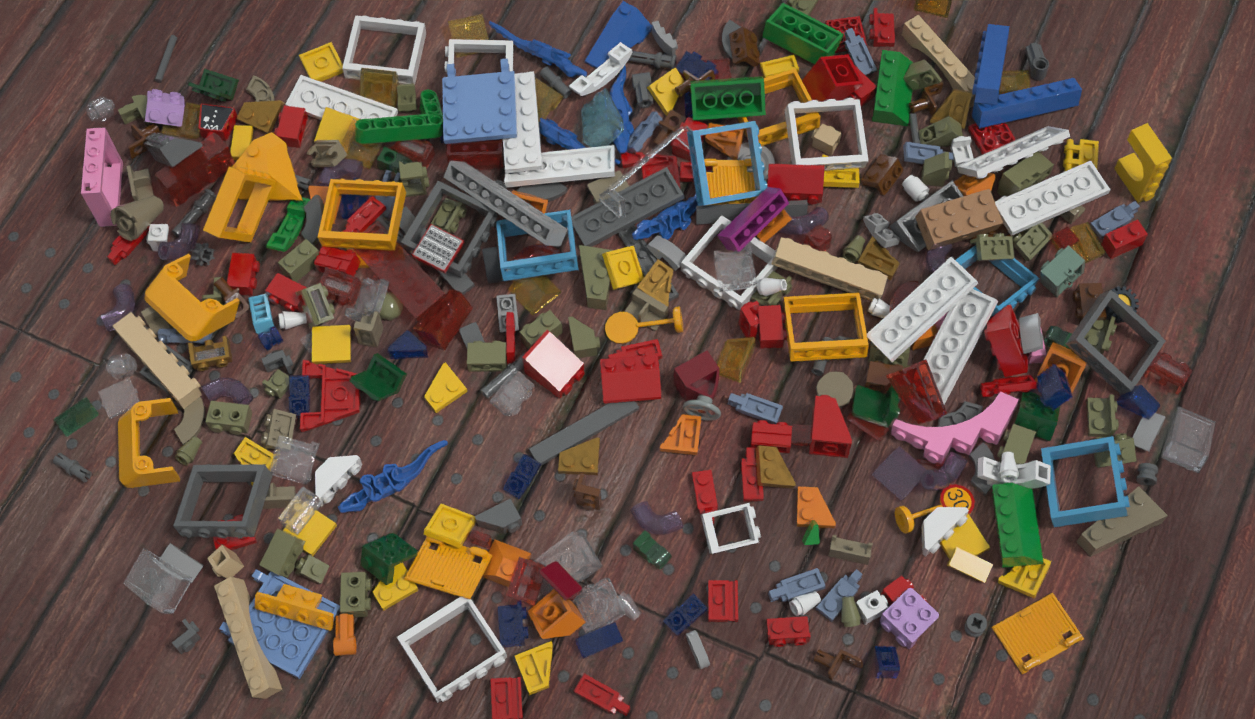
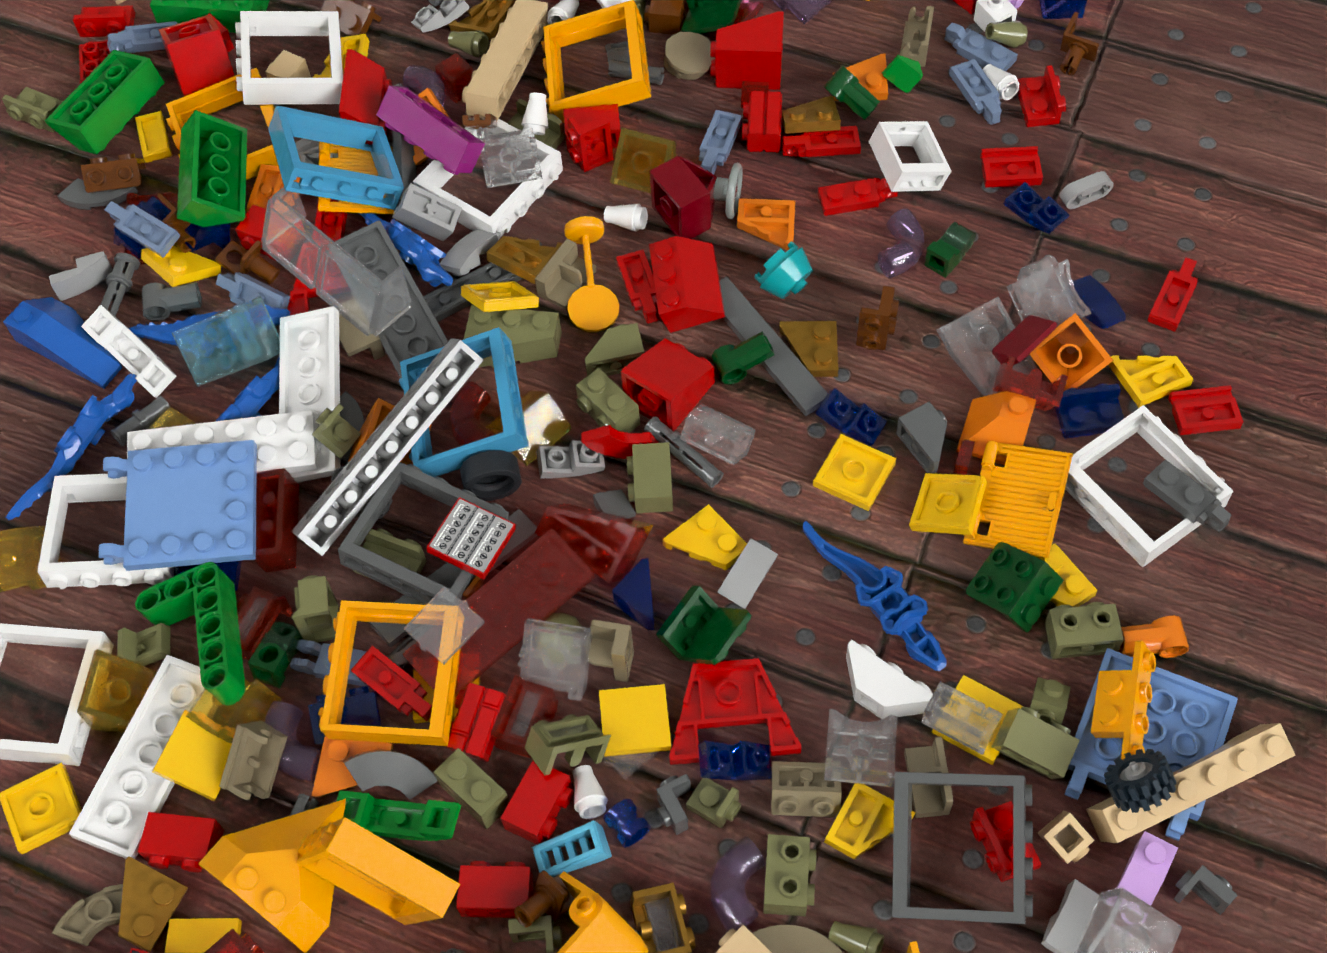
camera: 90 degrees left, 5 degrees down
(201, 605) = (1147, 867): none -> lavender slope
(238, 594) = (1140, 780): none -> black wheel
(379, 233) = (444, 625): none -> clear piece
(416, 407) = (747, 573): none -> light grey slope
(432, 664) = (1186, 496): none -> dark grey hinge
(483, 476) = (854, 472): none -> yellow tile
(525, 179) = (335, 431): none -> olive bracket
(569, 409) = (734, 361): none -> dark green piece
(632, 439) = (785, 272): none -> teal cone
(684, 63) = (143, 228): none -> sand blue hinge
(691, 223) = (427, 212): none -> light grey hinge
(692, 347) = (627, 216): none -> white cone
(757, 246) = (479, 121): none -> reddish brown tile
(794, 491) = (847, 89): none -> dark green piece

